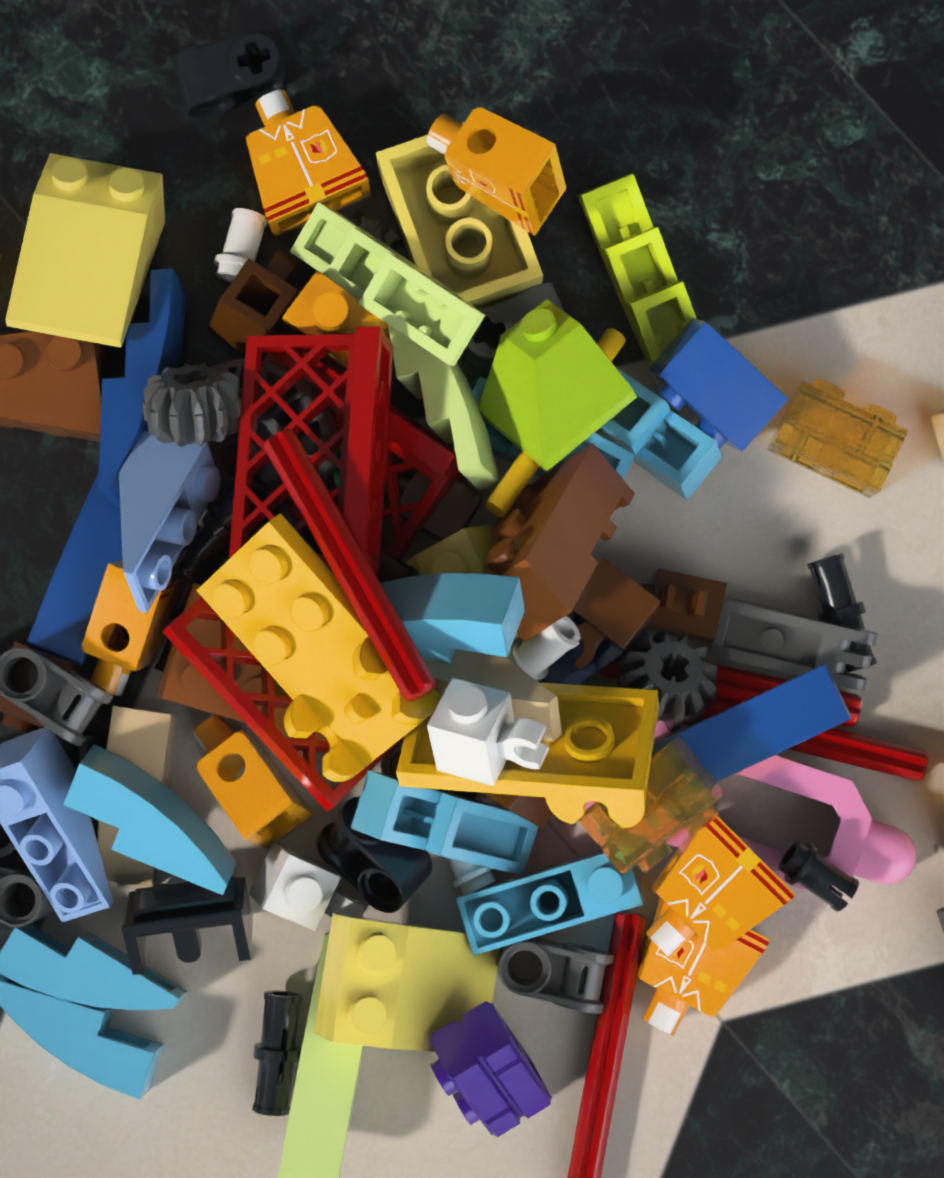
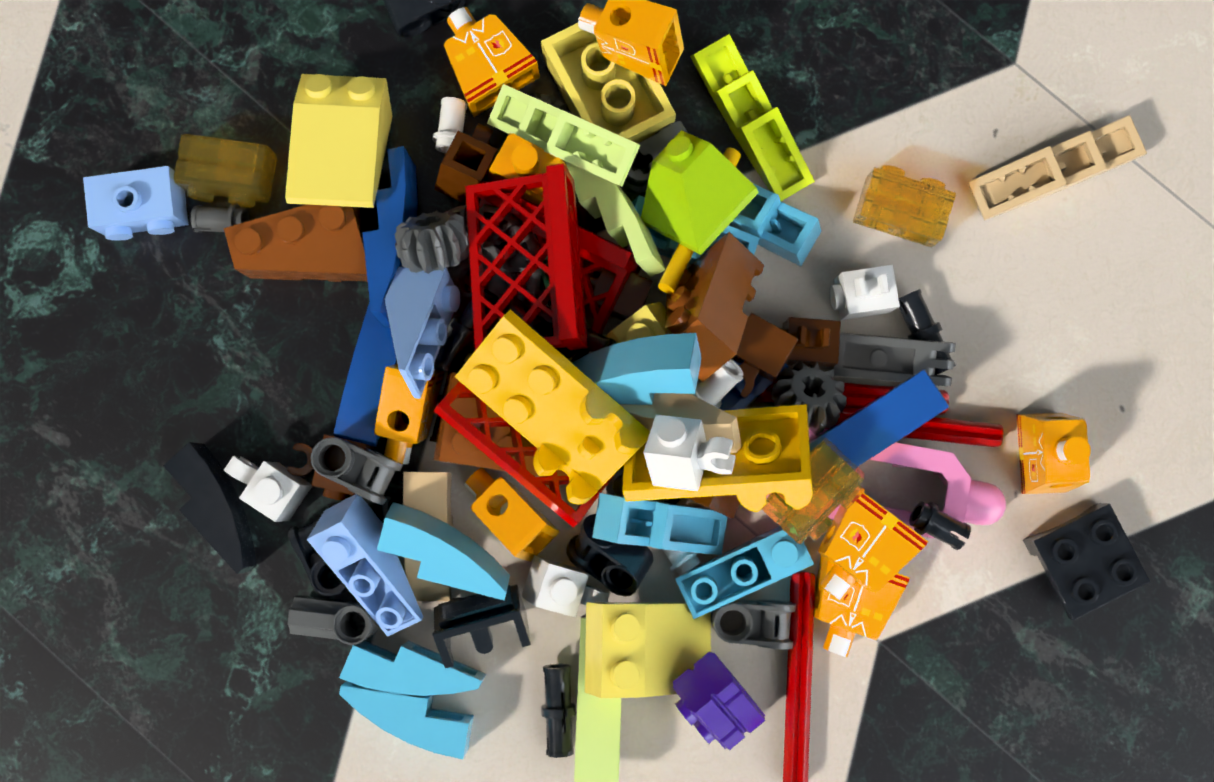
camera: 10 degrees left, 0 degrees up
(350, 565) = (568, 342): red axle -> none
(716, 385) = (812, 178): blue brick -> none
(767, 548) = (865, 292): none -> white brick

